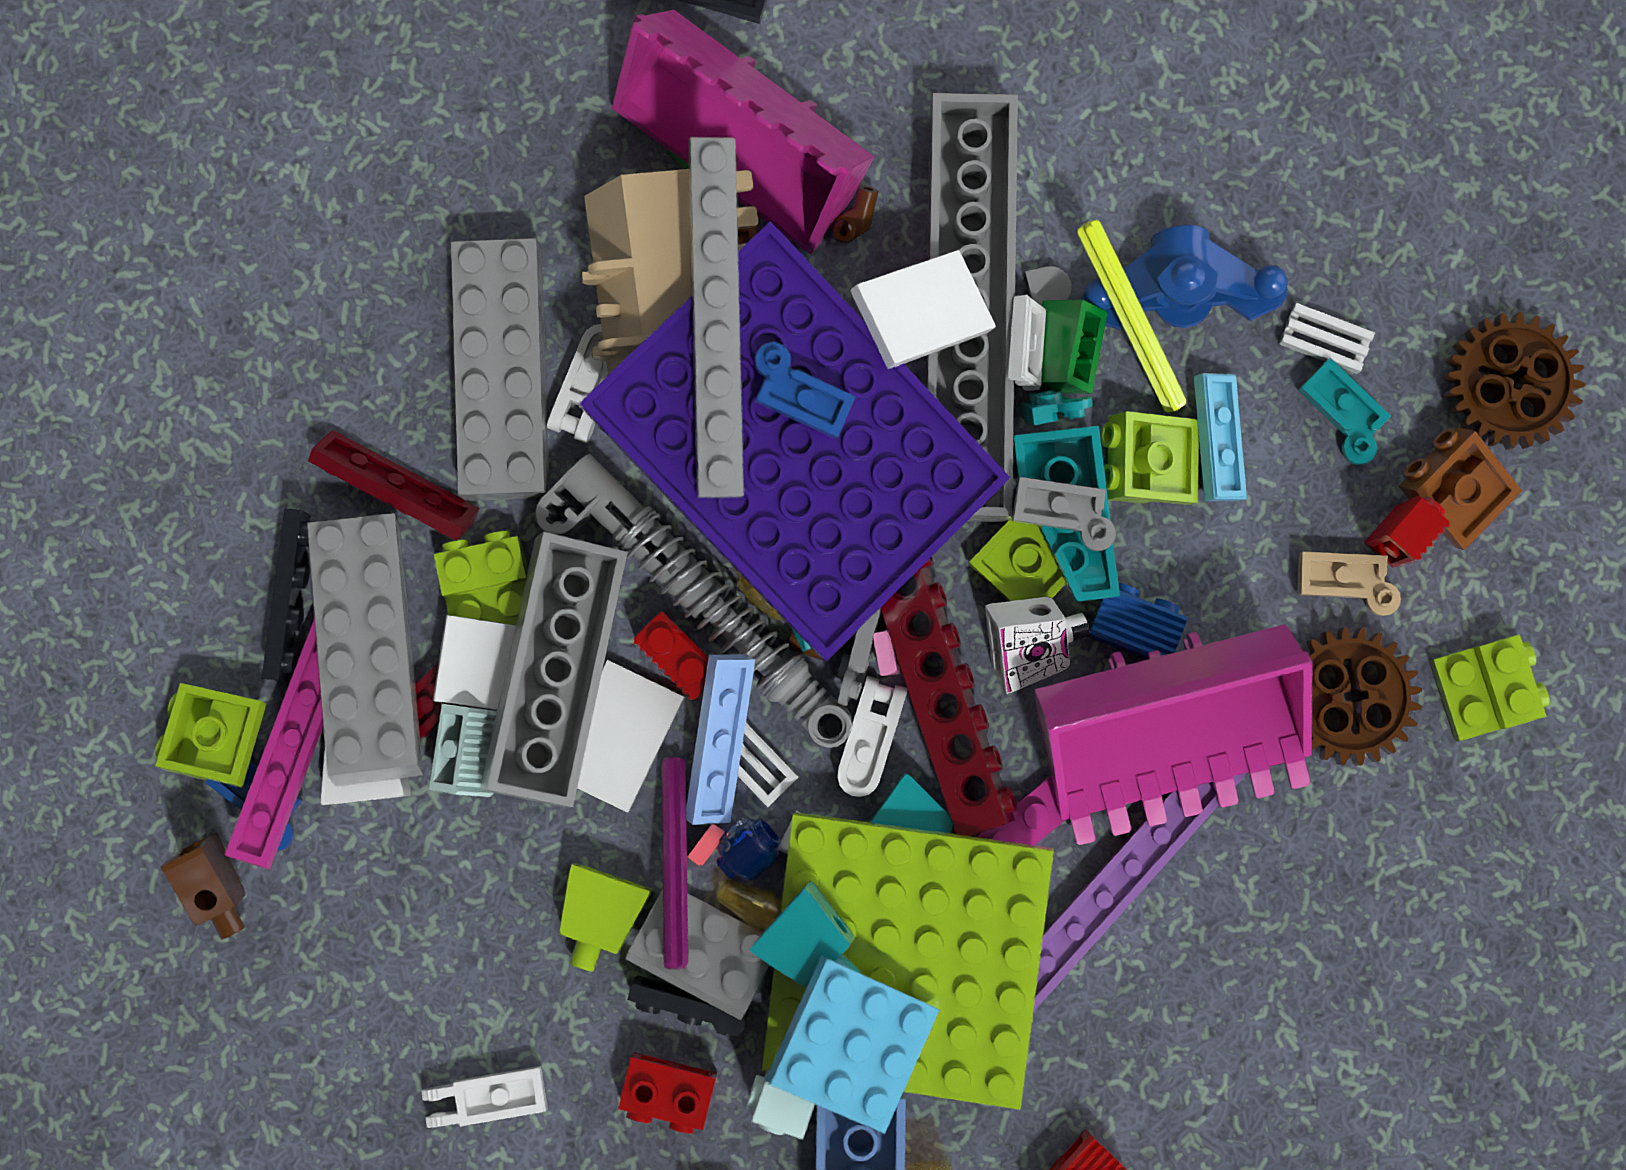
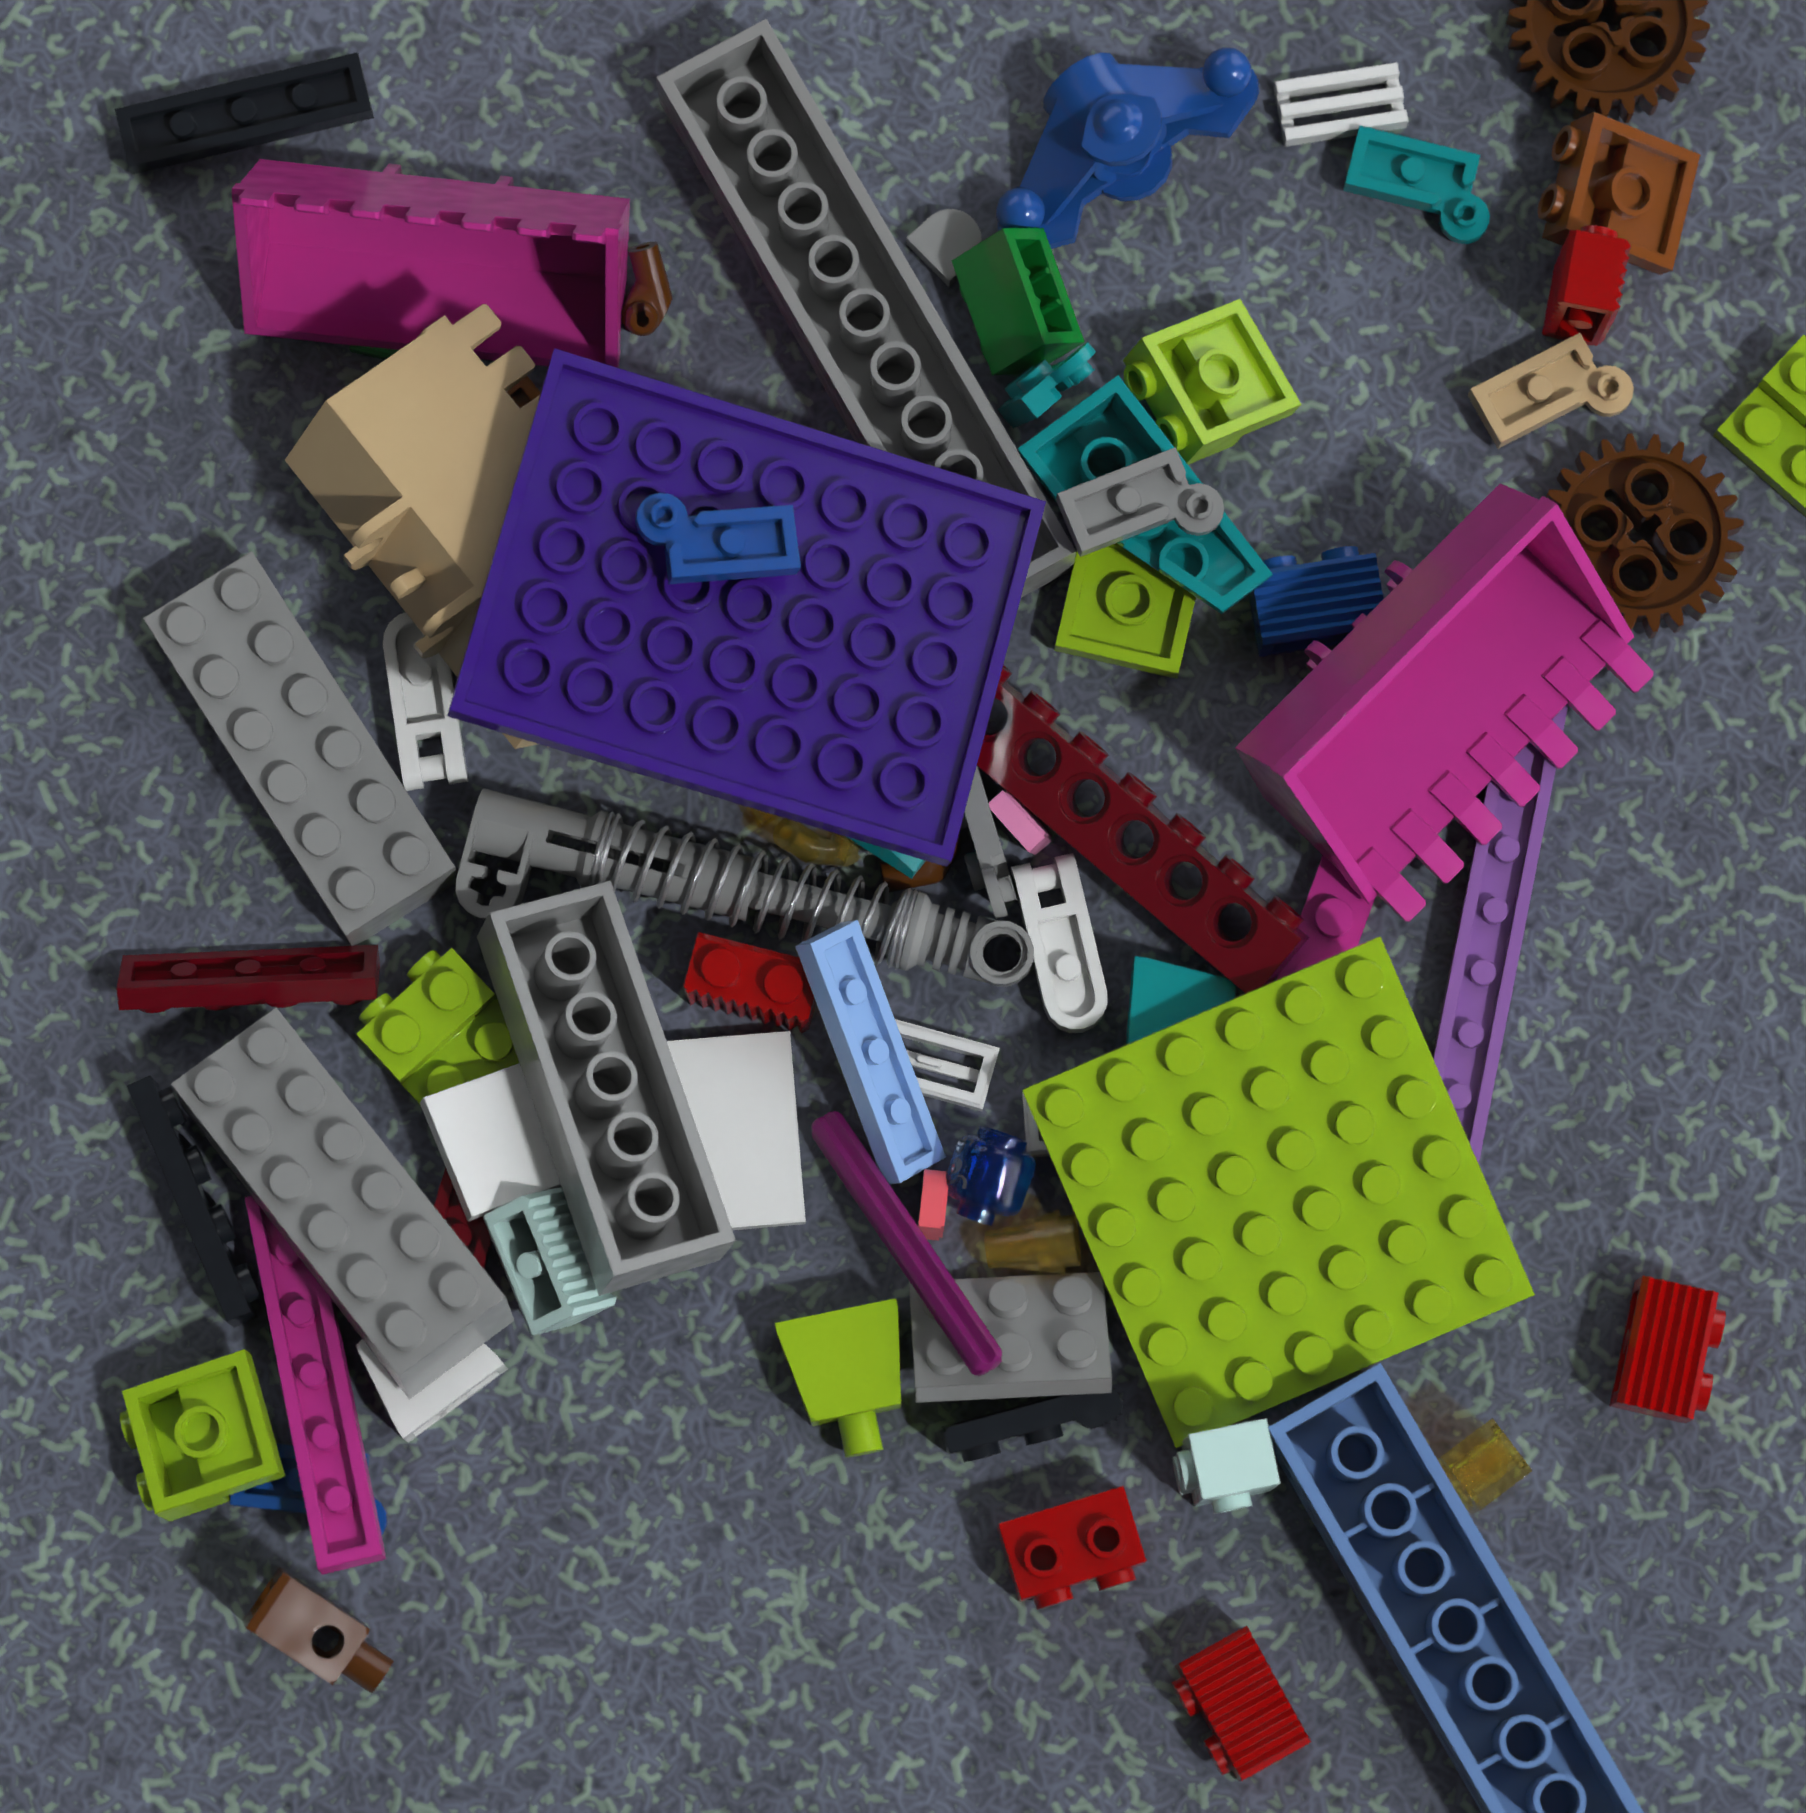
camera: 30 degrees left, 5 degrees down
(490, 1097) = (845, 1691): white hinge -> none
(715, 318) = (559, 507): light grey plate -> none
(804, 934) = (1139, 1234): teal torso -> none
(852, 1045) = (1272, 1326): medium azure plate -> none
(922, 309) = (809, 351): white tile -> none
(1027, 343) = (964, 324): white tile -> none
(1030, 640) = (1193, 697): white torso -> none
(1131, 315) = (1077, 215): neon yellow axle -> none
(1220, 437) = (1280, 305): medium azure tile -> none

